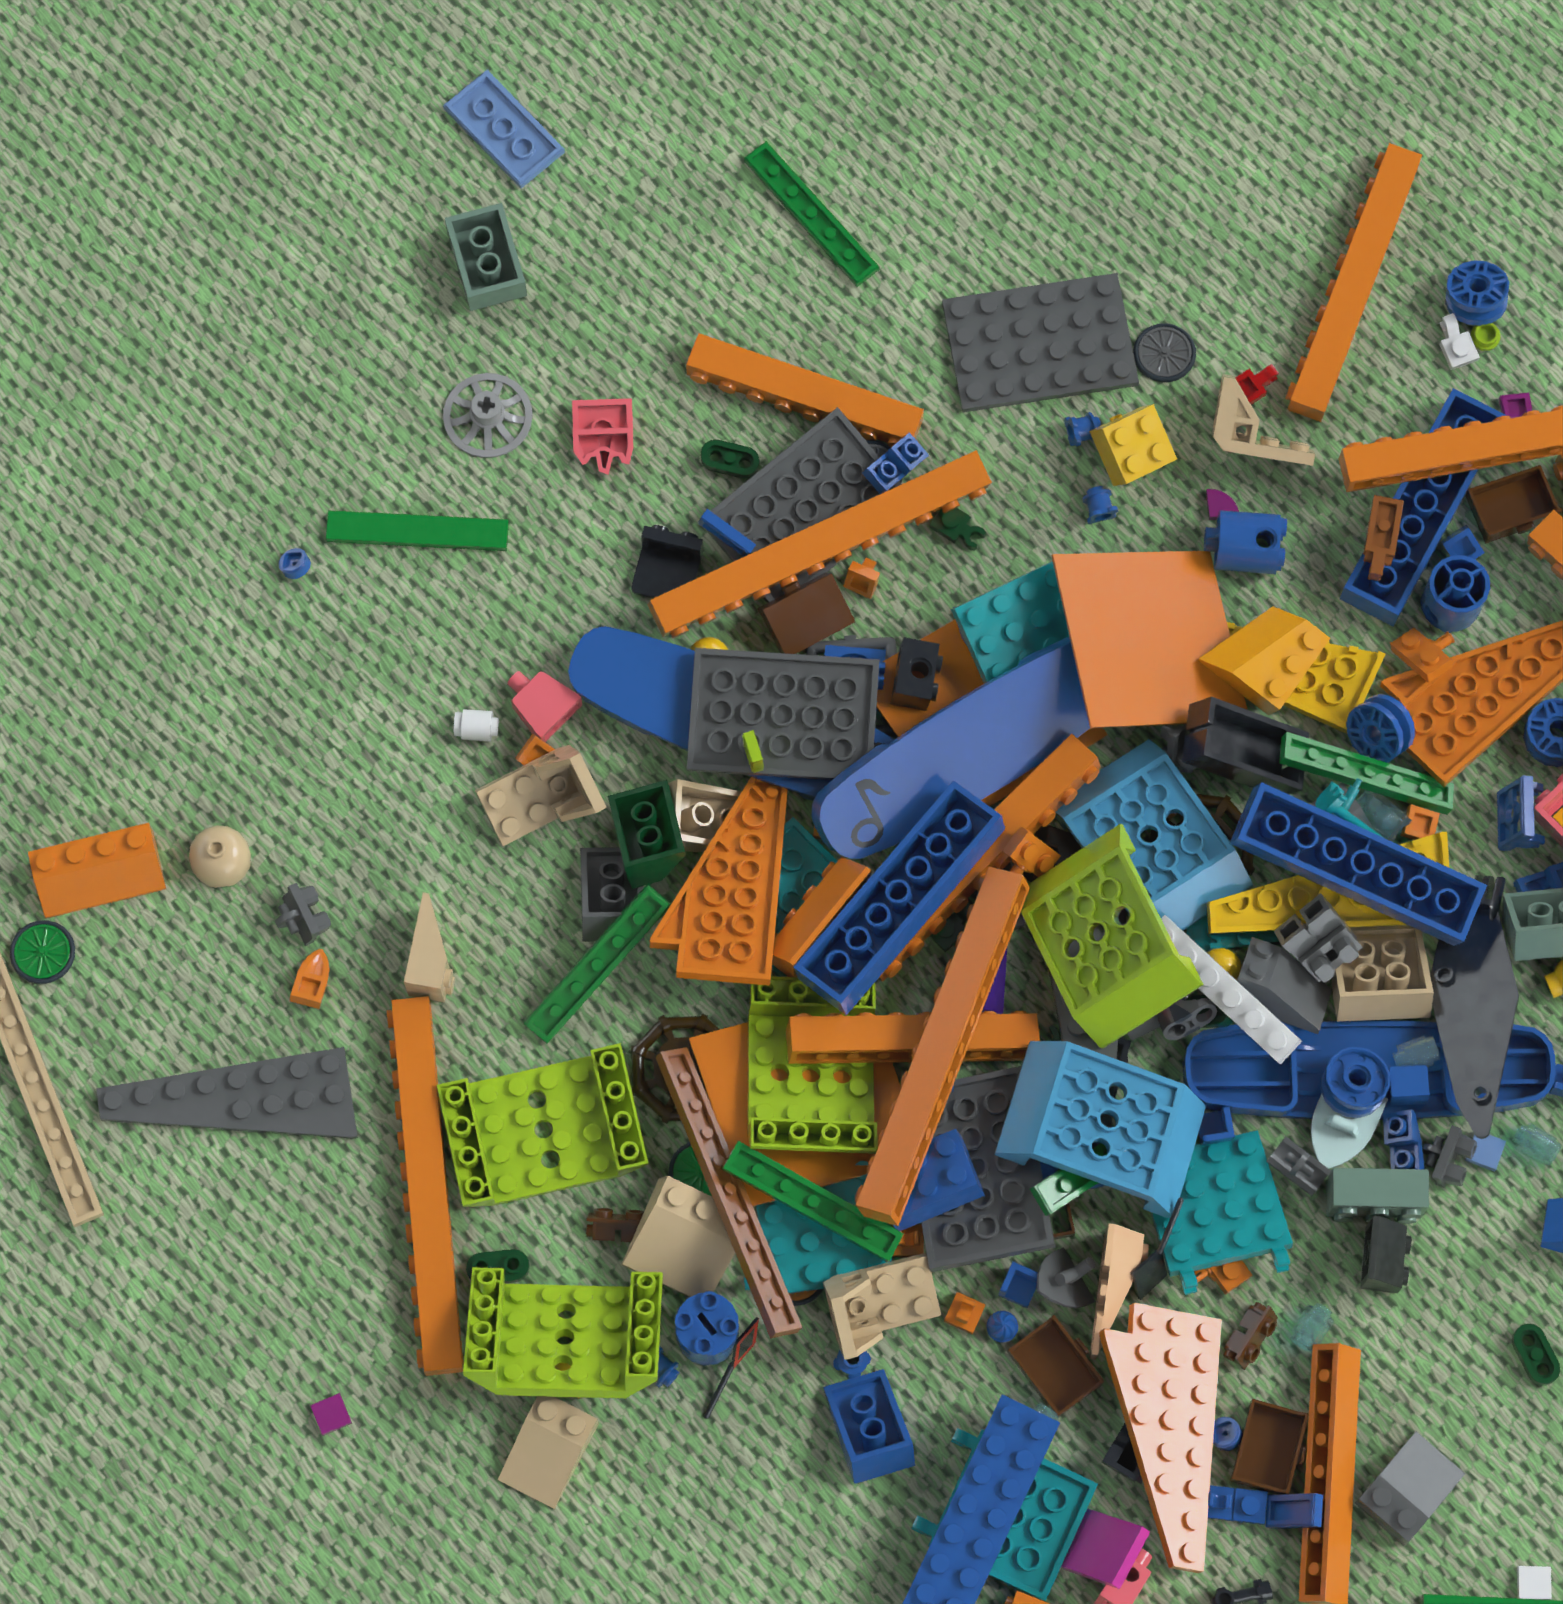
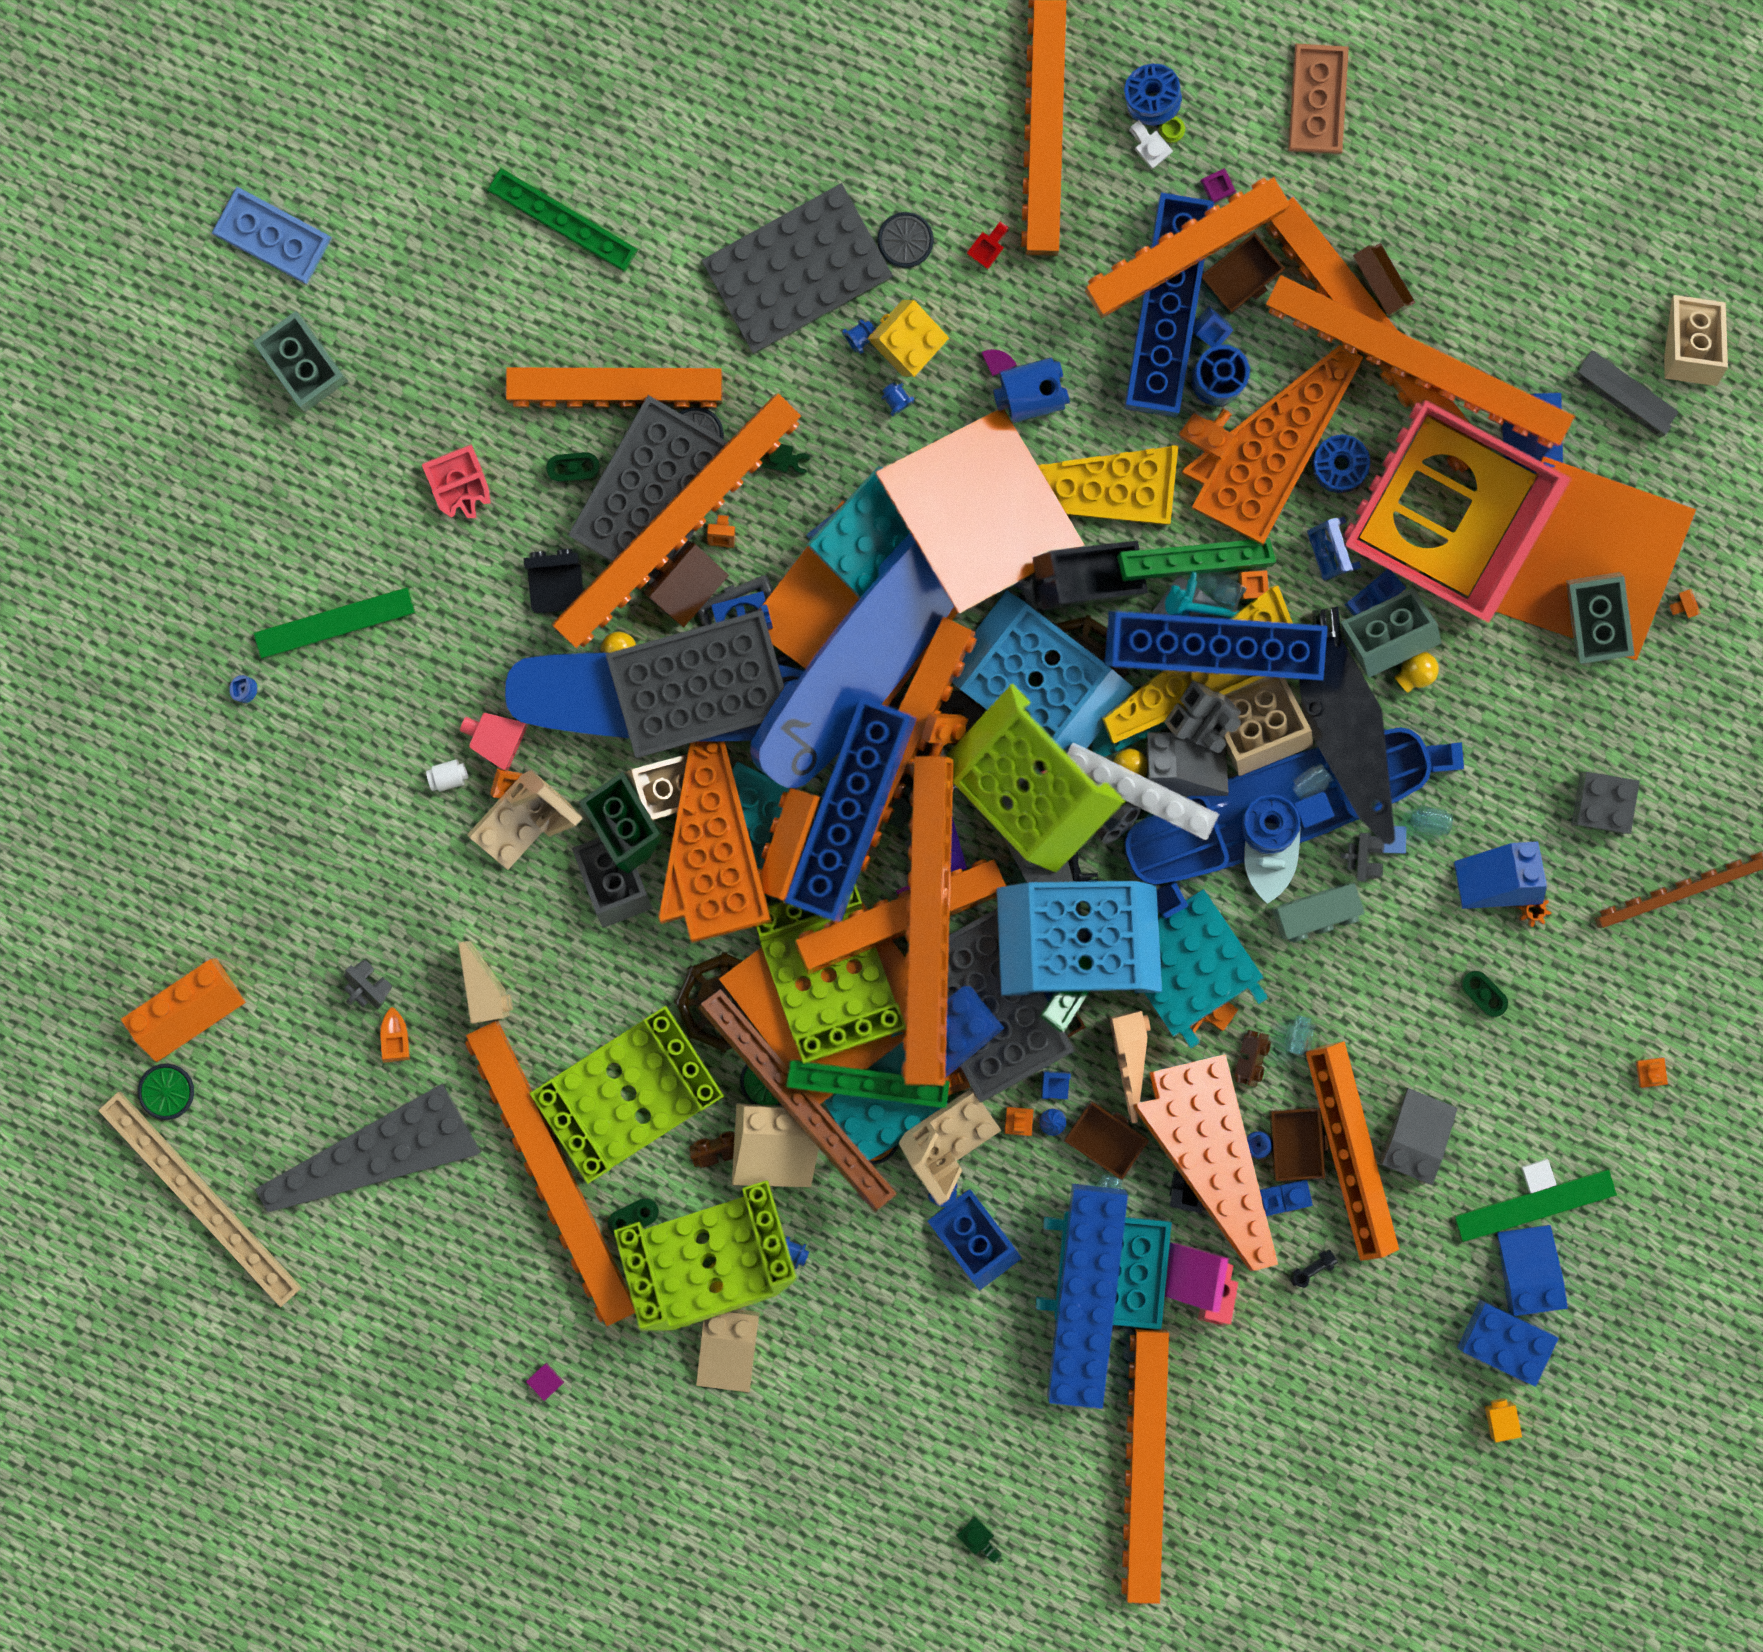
camera: 15 degrees left, 15 degrees up
(219, 856) = (279, 961): tan cylinder -> none
(487, 412) = (354, 499): light grey wheel -> none
(597, 963) = (622, 945): green tile -> none
(706, 1328) = (820, 1215): blue cylinder -> none
(726, 533) = (595, 542): blue tile -> none
(741, 1348) = (850, 1220): black piece -> none
(753, 751) = (686, 731): lime tile -> none
(895, 463) = (714, 426): blue slope -> none
(913, 691) = (794, 622): black brick -> none
(1062, 1280) = (1088, 1070): dark grey shield -> none
(1153, 1269) = (1159, 1031): black piece -> none
(1235, 411) = (986, 279): tan bracket -> none
(1267, 657) = (1082, 488): light orange wedge -> none
(1294, 1511) = (1333, 1190): blue tile -> none
(1298, 1166) = (1247, 909): dark grey hips -> none
(1380, 728) = (1195, 516): blue wheel -> none
(1382, 534) = (1143, 347): dark orange hinge -> none
(1384, 1256) = (1340, 958): pearl dark grey slope -> none
(1404, 1140) = (1326, 858): blue slope -> none

